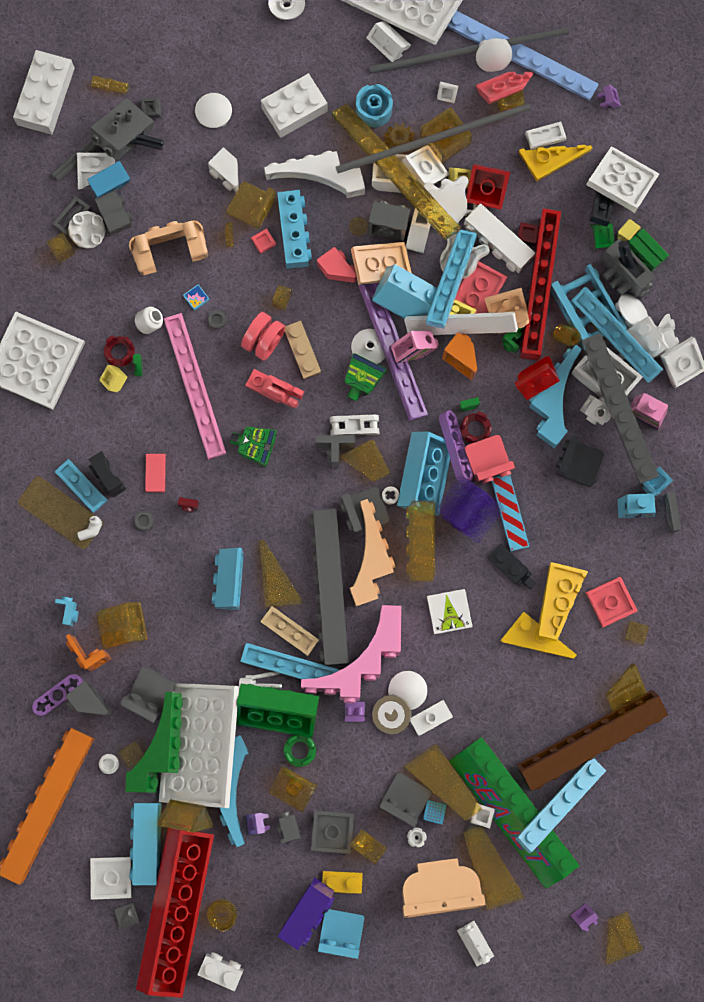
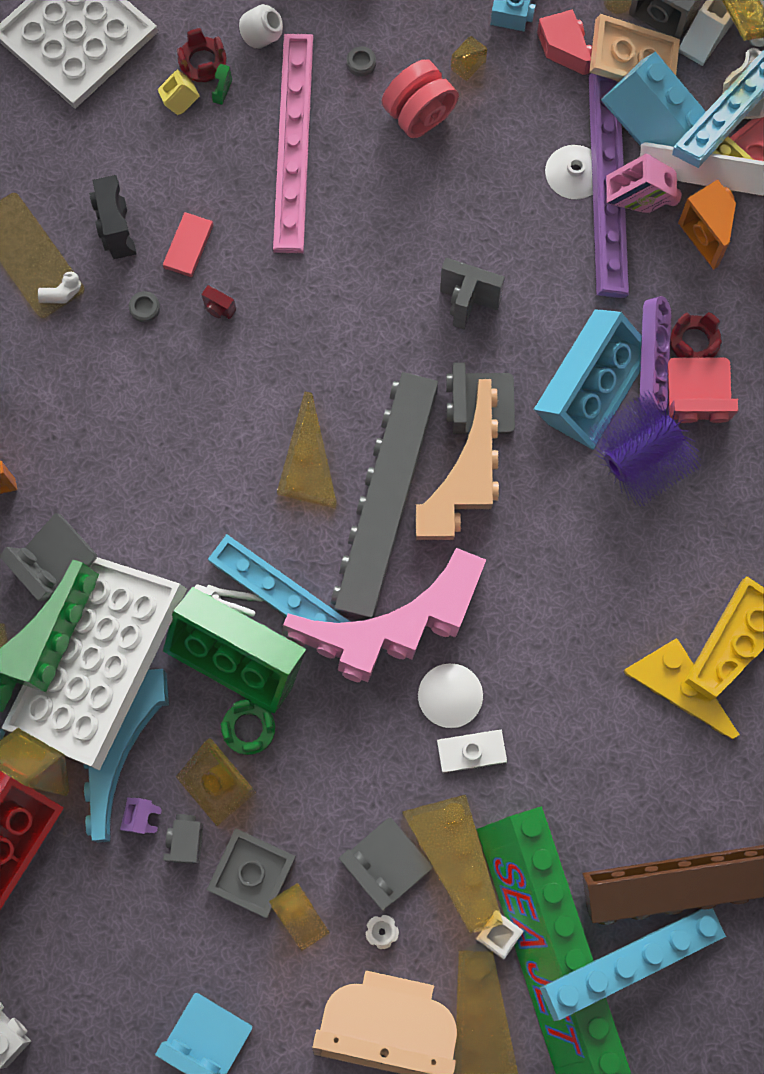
camera: 25 degrees right, 5 degrees down
(81, 486) = (72, 227): medium azure tile -> none
(121, 624) = (52, 443): clear yellow bracket -> none
(196, 297) = (343, 21): tile -> none
(222, 923) = (32, 926): clear yellow hair -> none
(228, 578) = (237, 430): medium azure slope -> none
(255, 444) = (351, 250): torso -> none
(274, 388) = (410, 182): coral plate -> none
(289, 631) = (300, 541): tan plate -> none
(302, 350) = (471, 143): tan plate -> none
(307, 914) = (159, 988): dark purple brick -> none
(343, 881) = (237, 959): yellow plate -> none
(354, 425) = (515, 273): white plate -> none
(355, 712) = (355, 699): medium lavender tile -> none
(363, 376) = (549, 206): green torso -> none
(367, 460) = (512, 331): clear yellow wing -> none
(390, 489) = (532, 385): white bush -> none
(391, 714) = (411, 722): dark tan tile -> none
(422, 540) = (553, 470): clear yellow brick -> none
(434, 812) = (425, 901): dark azure slope -> none
(449, 611) = (559, 598): white tile -> none
(469, 404) = (697, 299): green tile -> none
(511, 515) = (706, 483): tile -> none
(511, 567) = (680, 564): black hinge -> none

